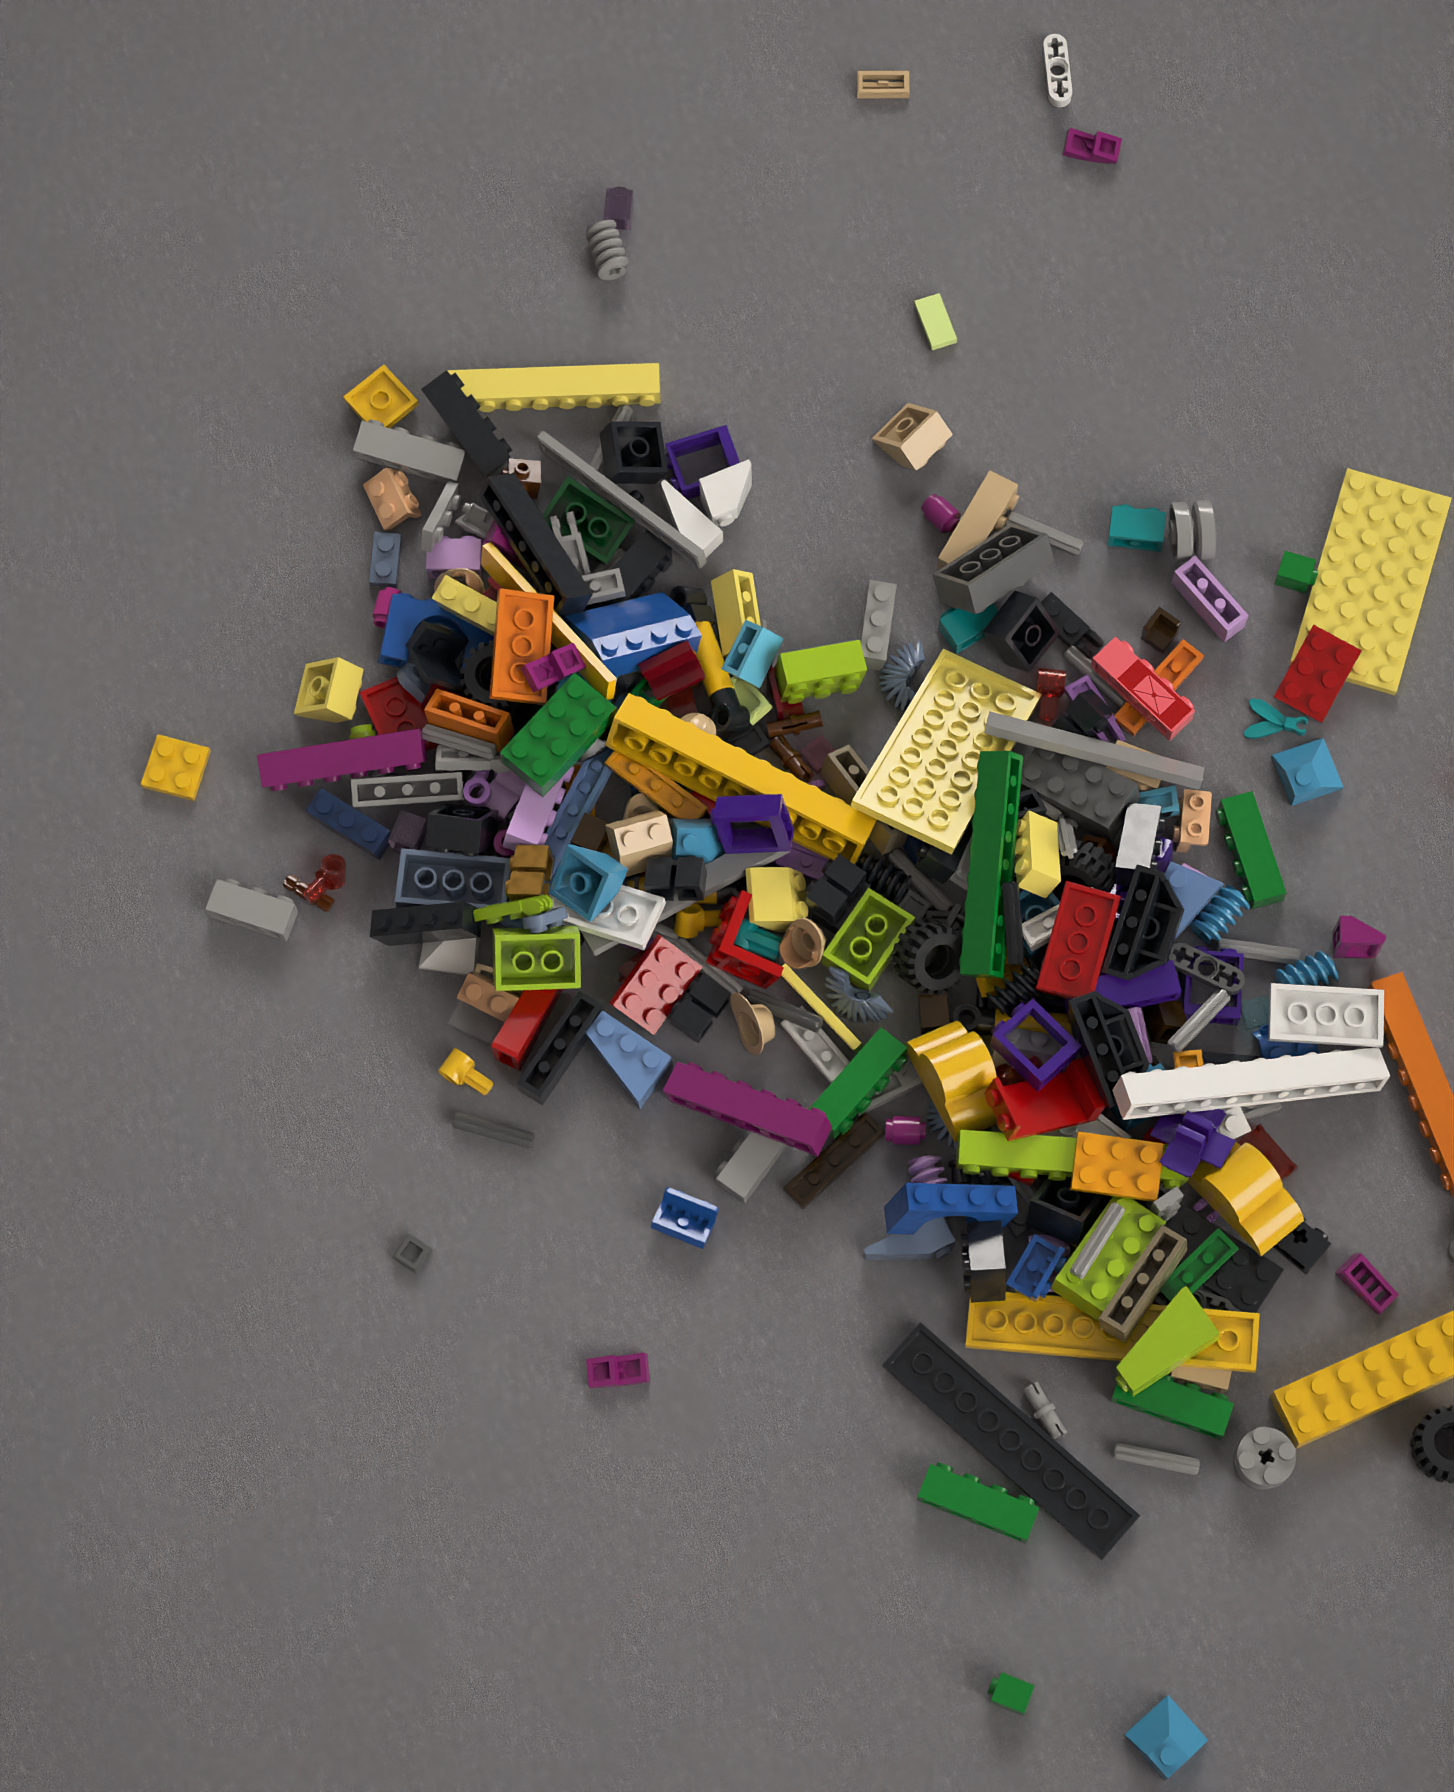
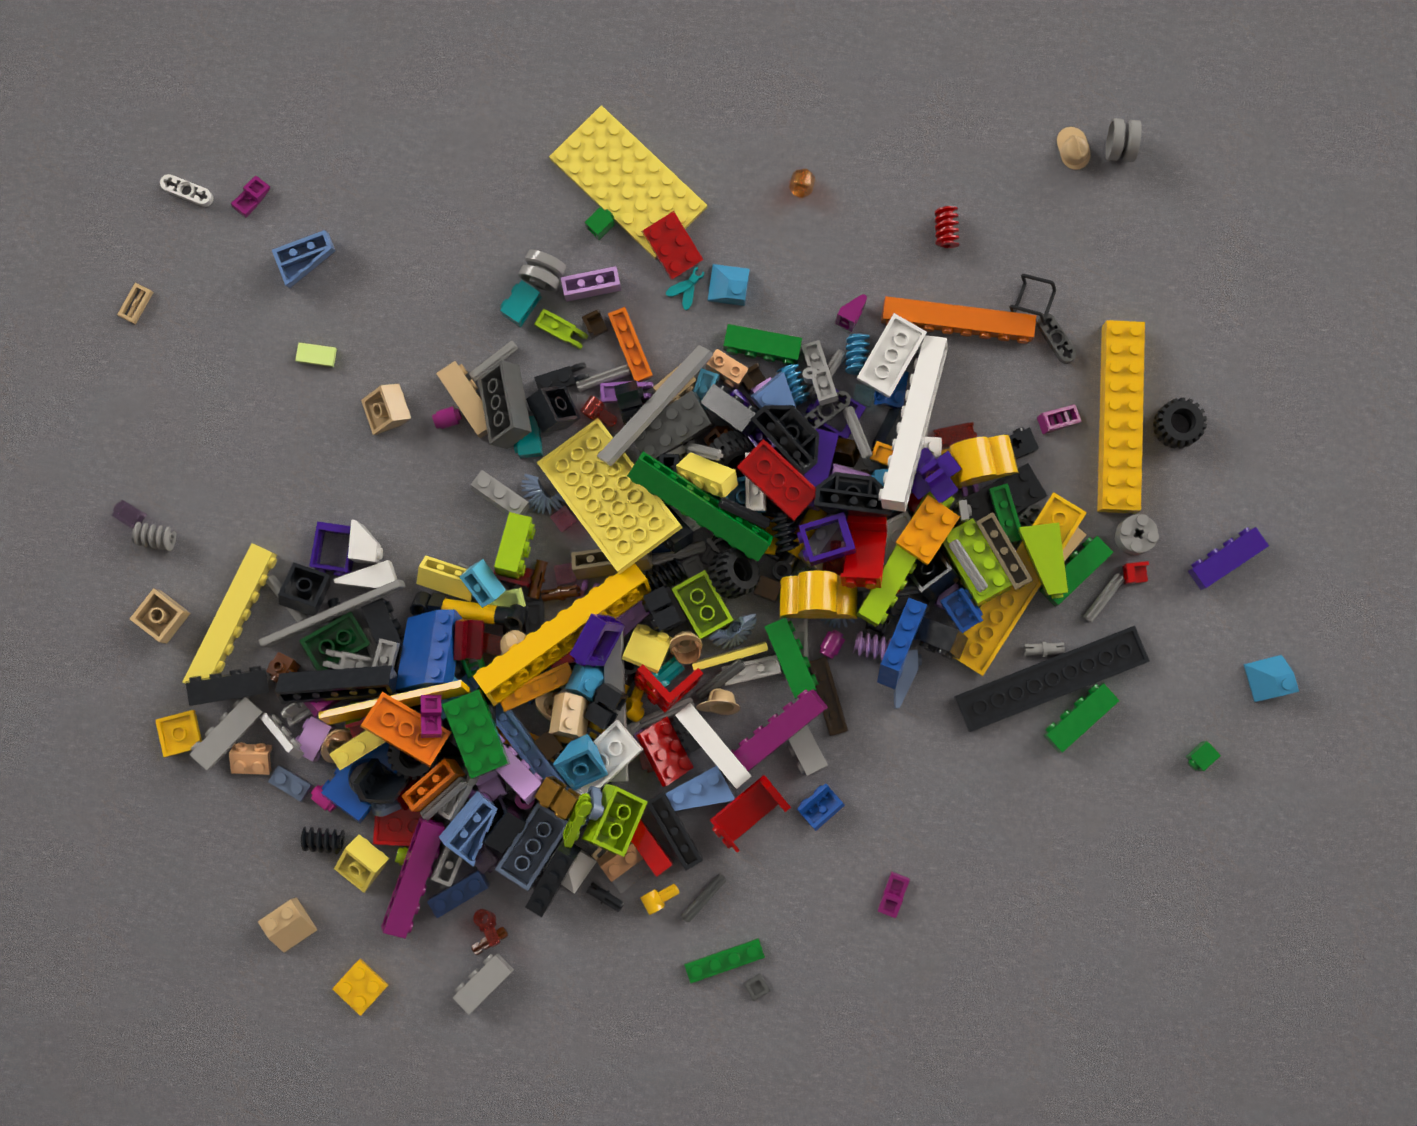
camera: 60 degrees left, 10 degrees up
(210, 642) = (287, 925): none -> tan slope
(332, 630) = (322, 842): none -> black piece
(426, 1196) = (724, 960): none -> green plate
(433, 1006) = (605, 897): none -> black axle
(436, 787) = (469, 827): none -> medium blue wedge
(513, 305) = (160, 616): none -> tan brick
(631, 1126) = (747, 811): none -> red panel
(693, 1037) = (713, 745): none -> white beam
(887, 716) = (563, 519): none -> clear pink plate
(1049, 242) = (302, 256): none -> medium blue wedge
(1131, 590) = (559, 328): none -> lime hinge
(1143, 688) = (628, 354): coral brick -> none
(1201, 858) = (752, 378): none -> dark brown panel
(1213, 1485) = (1135, 572): none -> red panel
(1251, 934) = (818, 373): none -> light grey hinge
(1300, 1599) = (1227, 558): none -> dark purple brick

